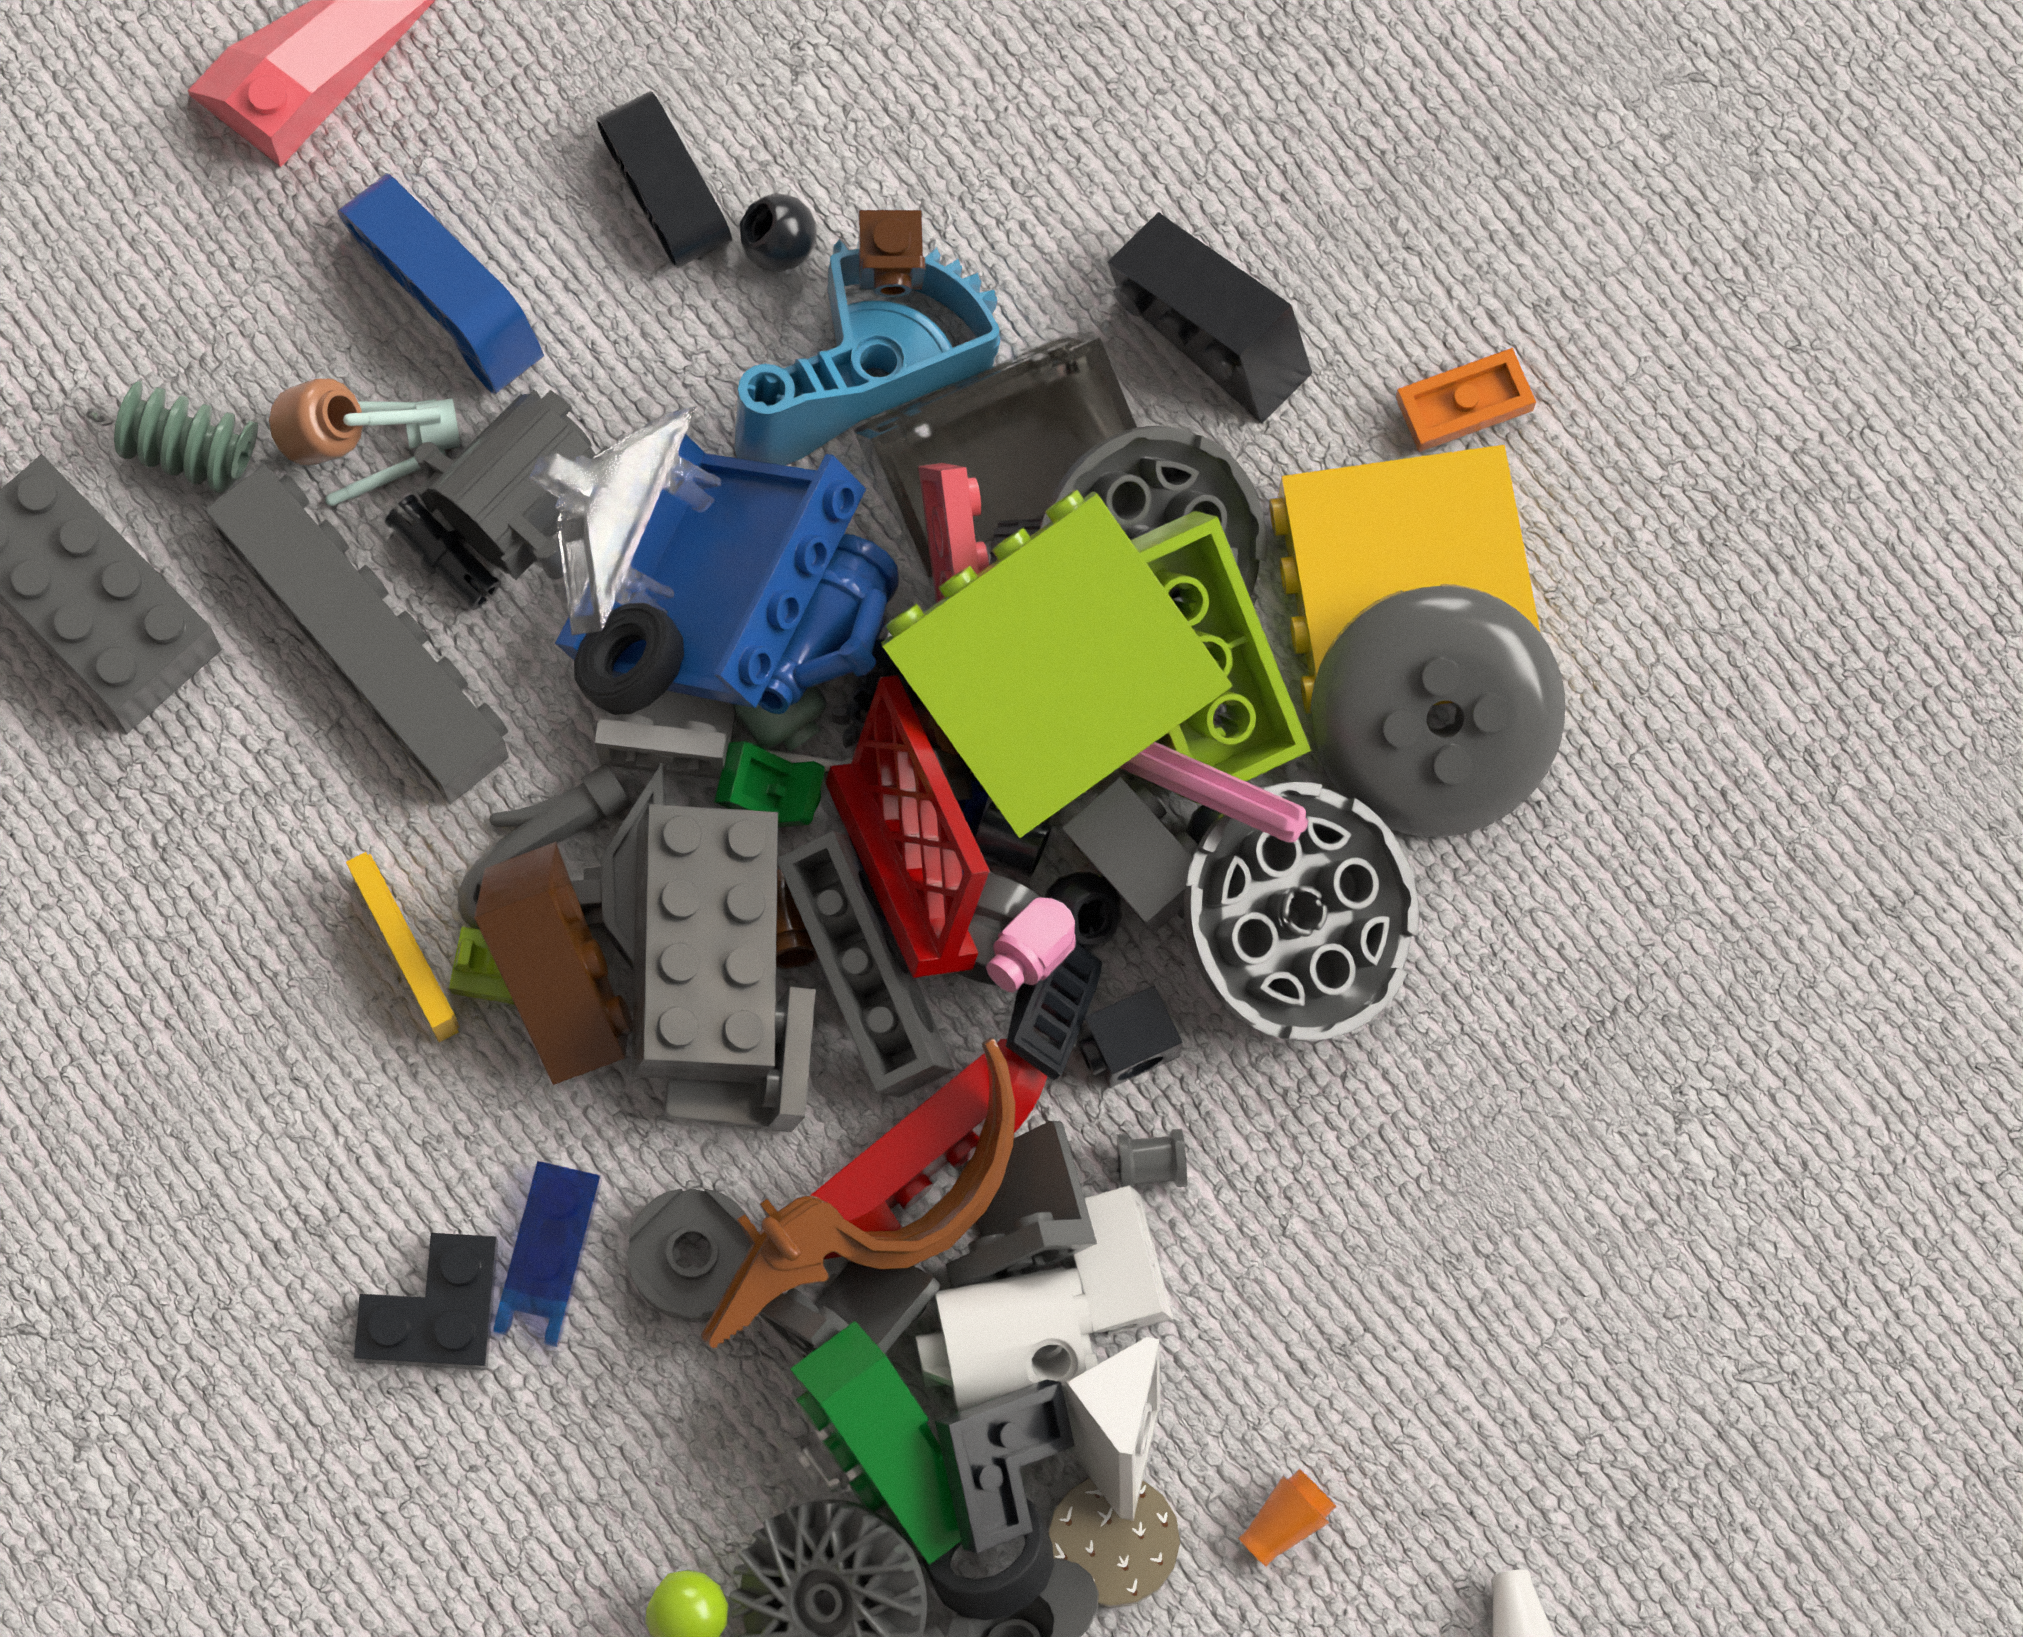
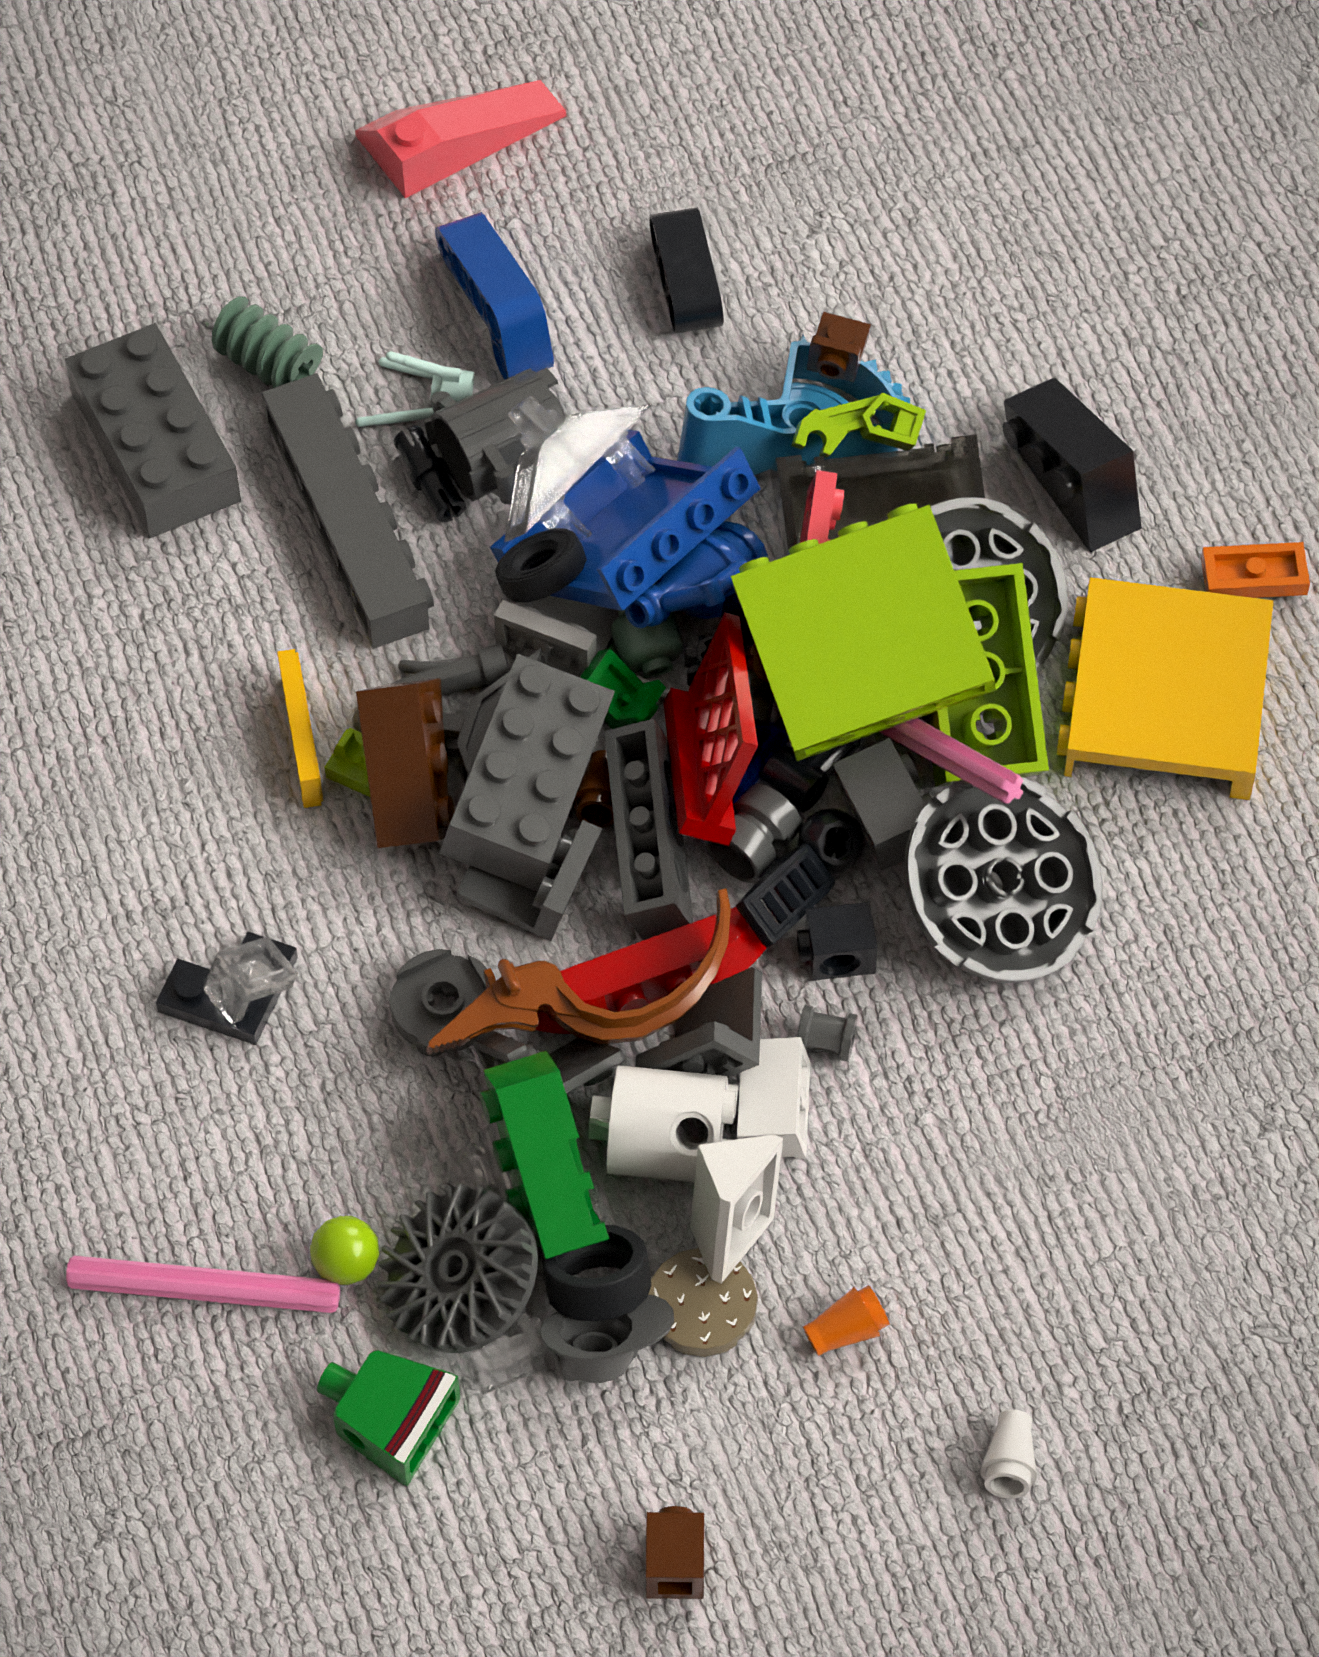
camera: 20 degrees right, 15 degrees down
(310, 423) = (361, 361): nougat head -> none
(458, 1305) = (247, 975): none -> clear bracket
(549, 1248) = (334, 970): clear blue hinge -> none
(778, 232) = (759, 324): black piece -> none
(924, 361) = (837, 421): none -> lime piece
(984, 1457) = (615, 1178): black plate -> none
(1032, 944) = (781, 840): bright pink arm -> none
(1398, 664) = (1151, 823): dark grey brick -> none

